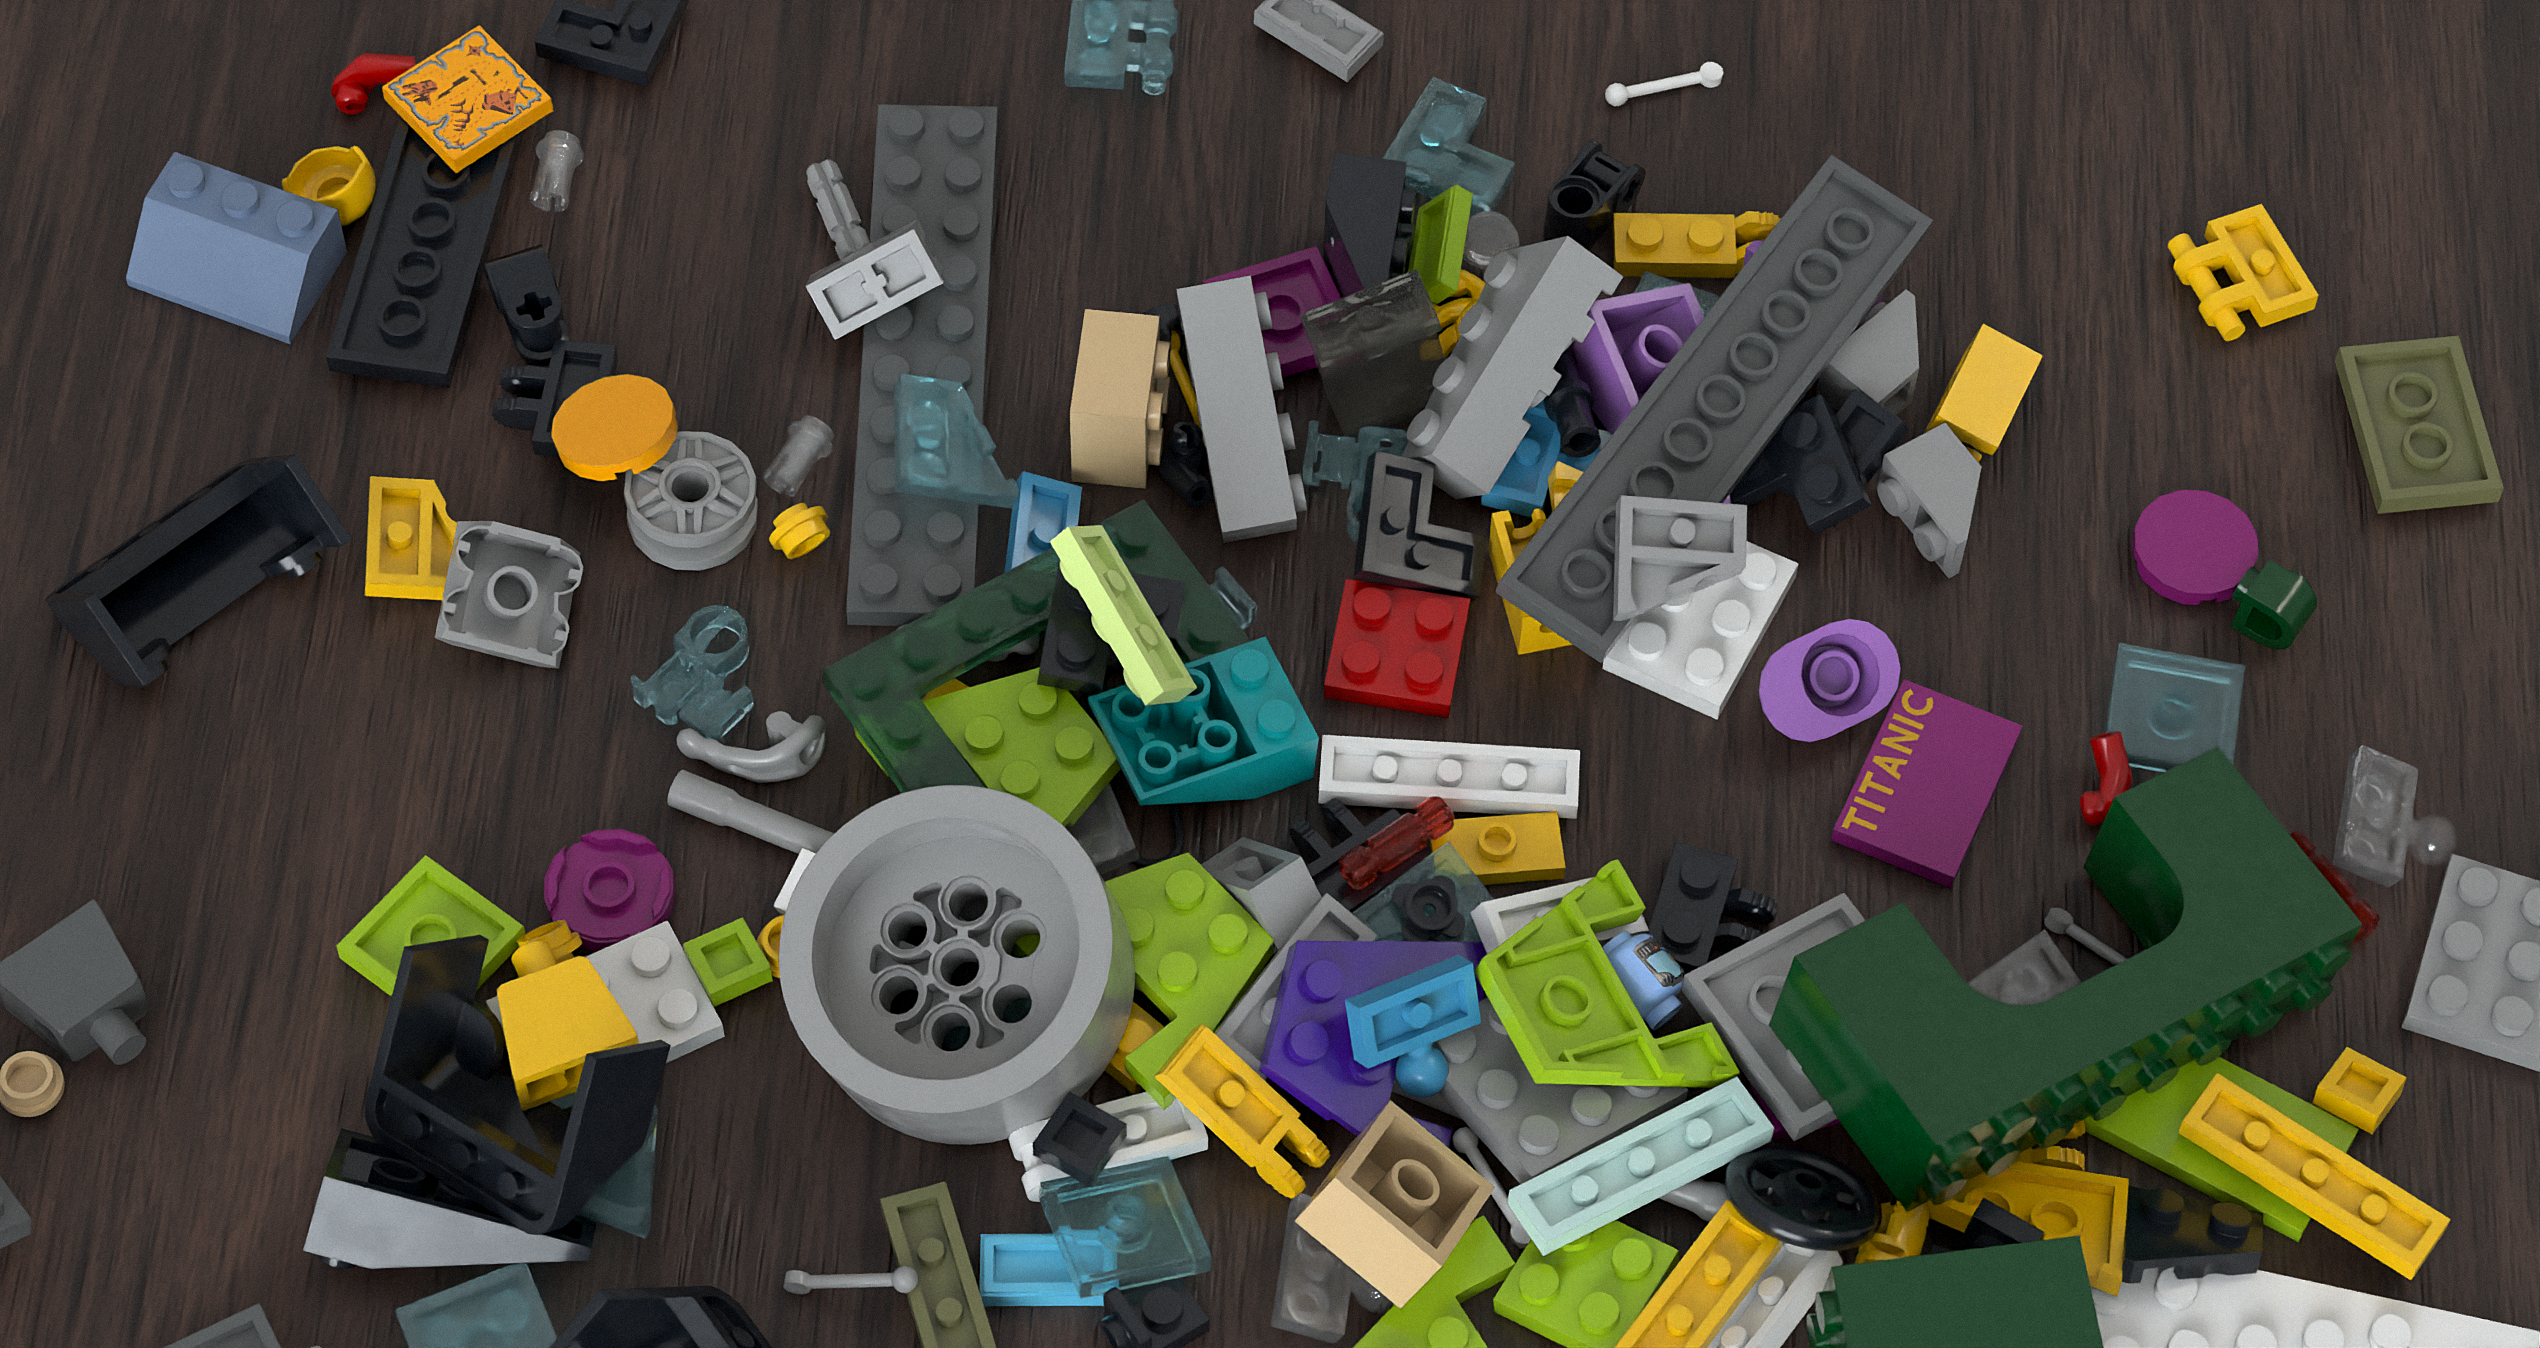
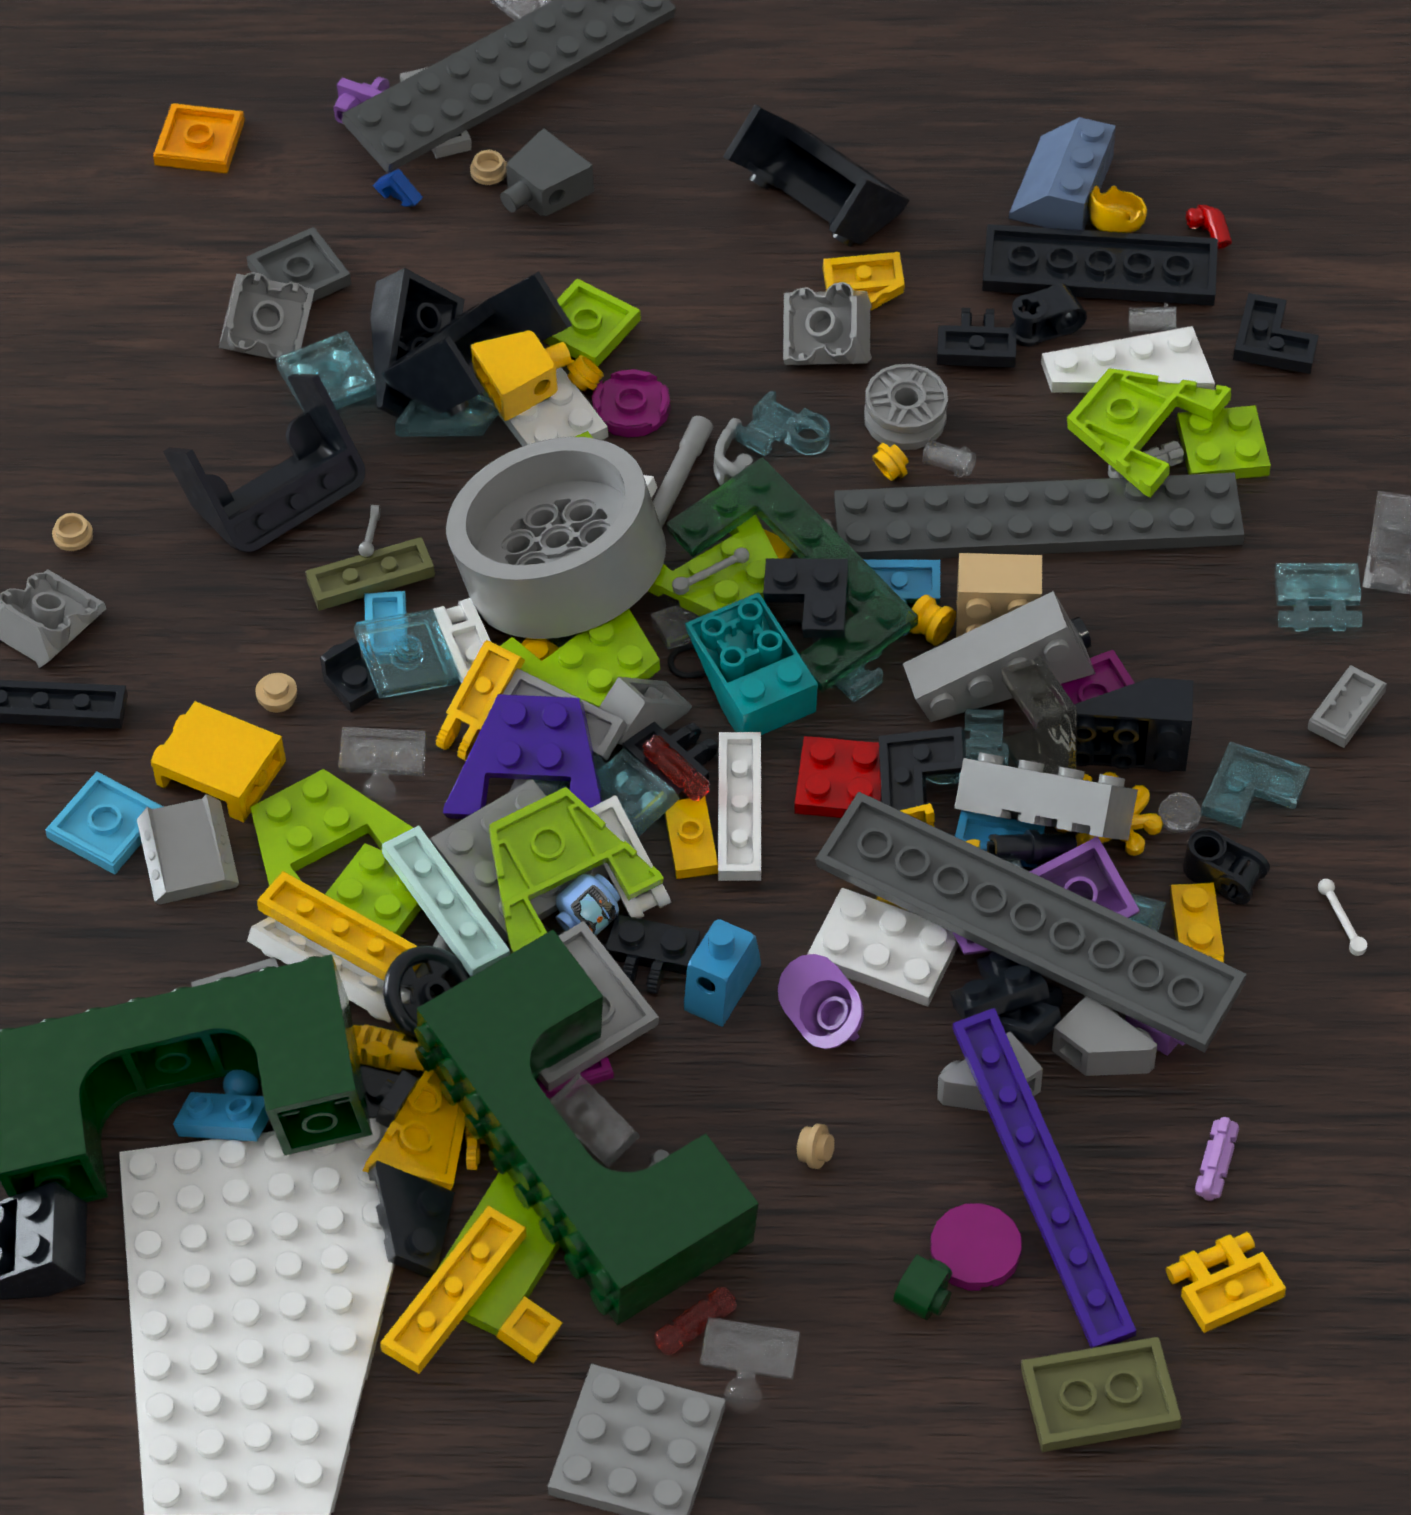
camera: 90 degrees right, 5 degrees down
(48, 1226) = (399, 187): none -> blue tile
(467, 99) = (1190, 261): light orange tile -> none
(614, 427) = (942, 353): light orange tile -> none
(638, 208) = (1168, 354): none -> white wing
(765, 220) = (1125, 413): none -> lime wing
(811, 116) = (1226, 445): none -> lime plate
(875, 279) = (1078, 471): light grey hinge -> none
(943, 445) = (951, 514): clear light blue wing -> none
(1062, 801) = (682, 584): none -> light grey hinge
(1079, 1139) = (454, 617): black plate -> none
(1122, 615) = (797, 582): yellowish green plate -> none
(1124, 488) = (933, 620): none -> yellow wheel
(1395, 1204) = (410, 769): tan brick -> none
(1410, 1016) = (531, 760): dark azure plate -> none
(1439, 894) = (620, 772): black plate -> none
(1441, 242) = (1163, 778): lime tile -> none
(1673, 550) = (889, 882): light grey wing -> none
(1765, 807) = (729, 961): none -> dark azure torso
(1926, 783) = (761, 1079): magenta tile -> none
(1985, 390) = (1085, 1101): yellow hinge -> none
(2048, 717) = (815, 1146): none -> tan plate
(2054, 262) = (1217, 1158): none -> lavender axle
(2113, 773) = (770, 1188): red arm -> none
(2115, 439) = (1044, 1180): none -> dark purple plate
(2173, 706) = (832, 1230): clear light blue plate -> none

